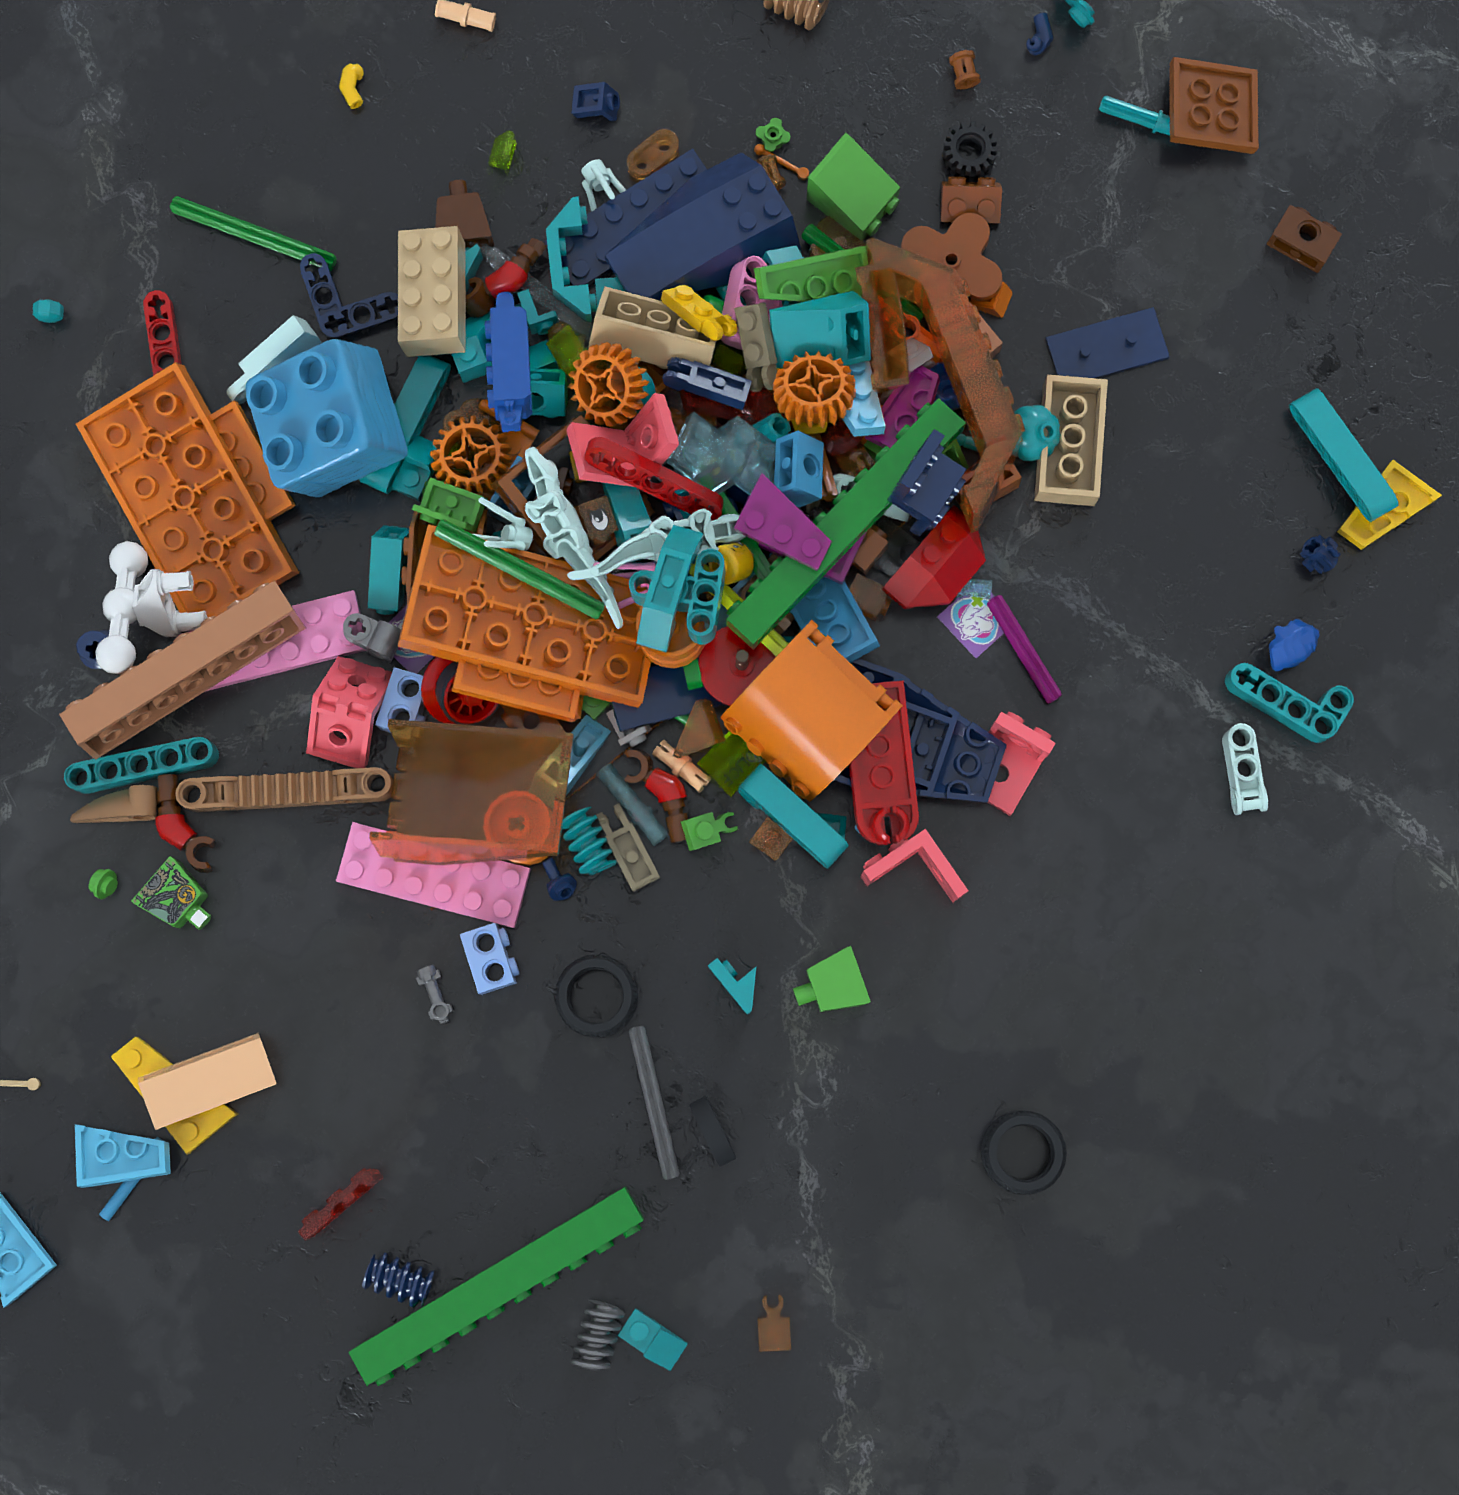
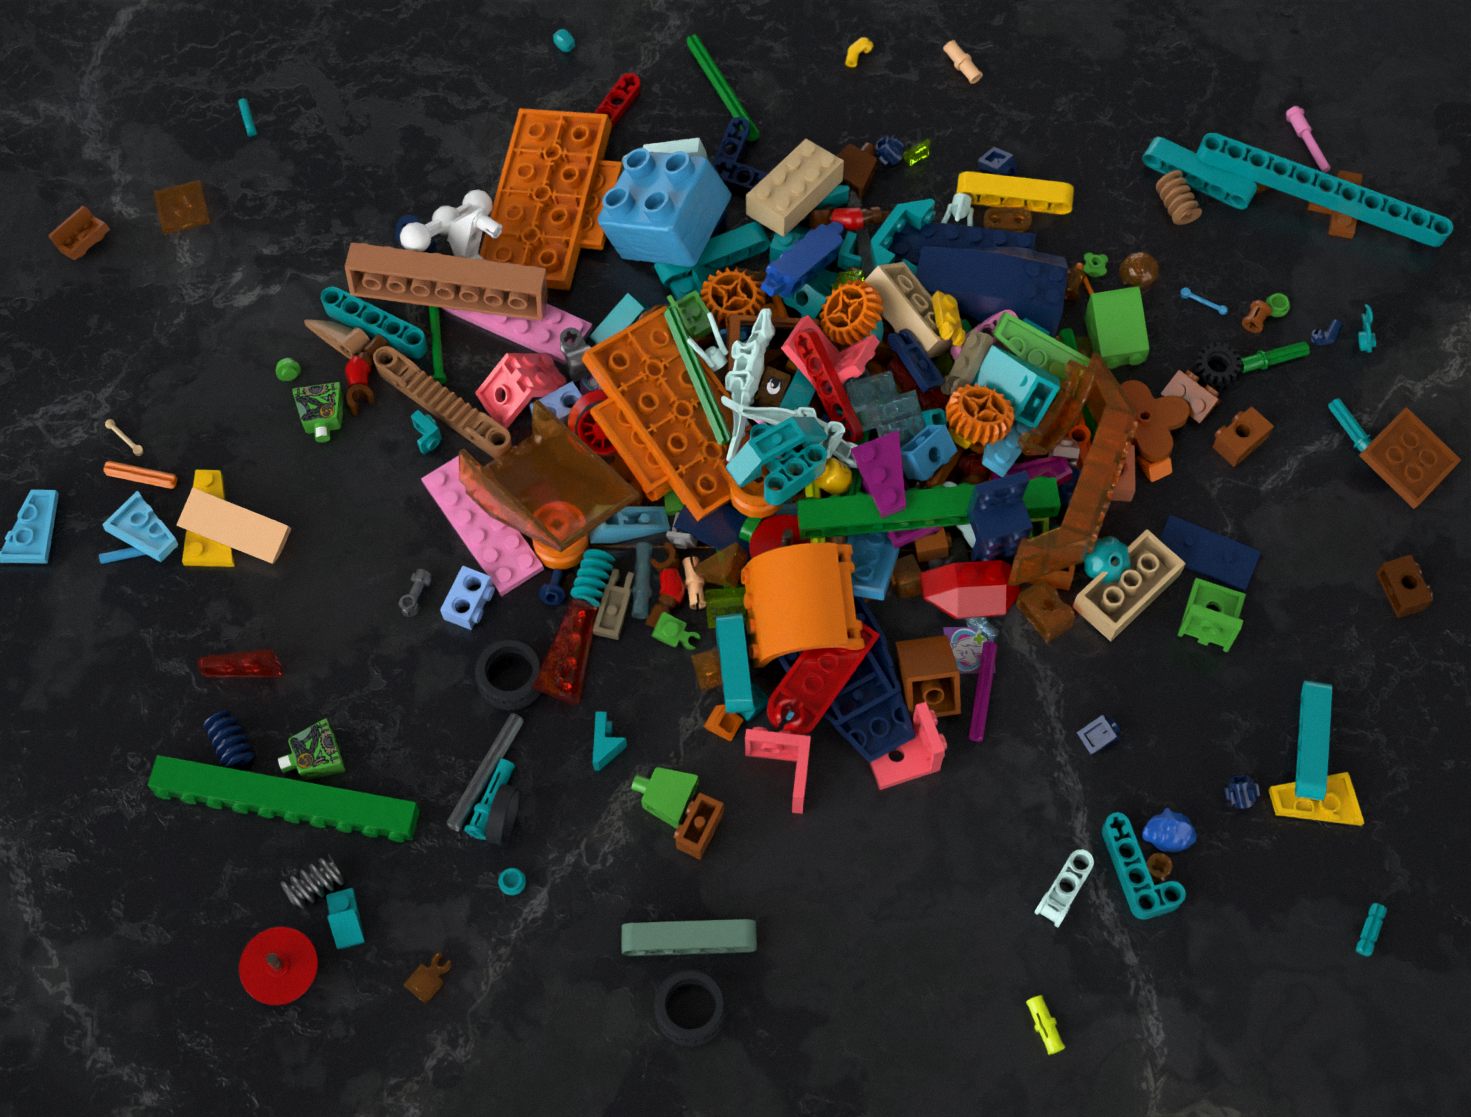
camera: 40 degrees right, 15 degrees down
(61, 1106) = (140, 474): none -> orange axle
(225, 738) = (436, 345): none -> green bar
(294, 826) = (427, 427): none -> teal bracket
(479, 171) = (889, 150): none -> dark blue gear
(485, 1221) = (313, 753): none -> torso
(632, 933) = (568, 655): none -> clear red wing
(637, 118) = (1016, 192): none -> yellow beam
(641, 1436) = (278, 966): none -> red piece
(688, 1138) = (478, 824): none -> teal pin
(768, 1178) = (512, 881): none -> teal plate
(818, 107) = (1139, 269): none -> clear orange hair
(819, 877) = (723, 724): none -> orange slope
(878, 95) = (1185, 293): none -> dark azure hinge
(890, 987) = (699, 826): none -> dark orange brick
(966, 1093) = (689, 937): none -> sand green beam
(969, 677) = (929, 675): none -> dark orange slope
(973, 39) = (1279, 304): none -> bright green plate
(1000, 525) = (1047, 622): none -> clear orange brick
(1006, 107) = (1265, 359): none -> green axle
(1053, 188) = (1236, 448): none -> dark orange brick
(1158, 602) = (1100, 733): none -> bracket
(1165, 423) = (1208, 624): none -> bright green bracket
(1314, 683) = (1159, 860): none -> clear orange bush
(1324, 904) = (1045, 1024): none -> neon yellow pin

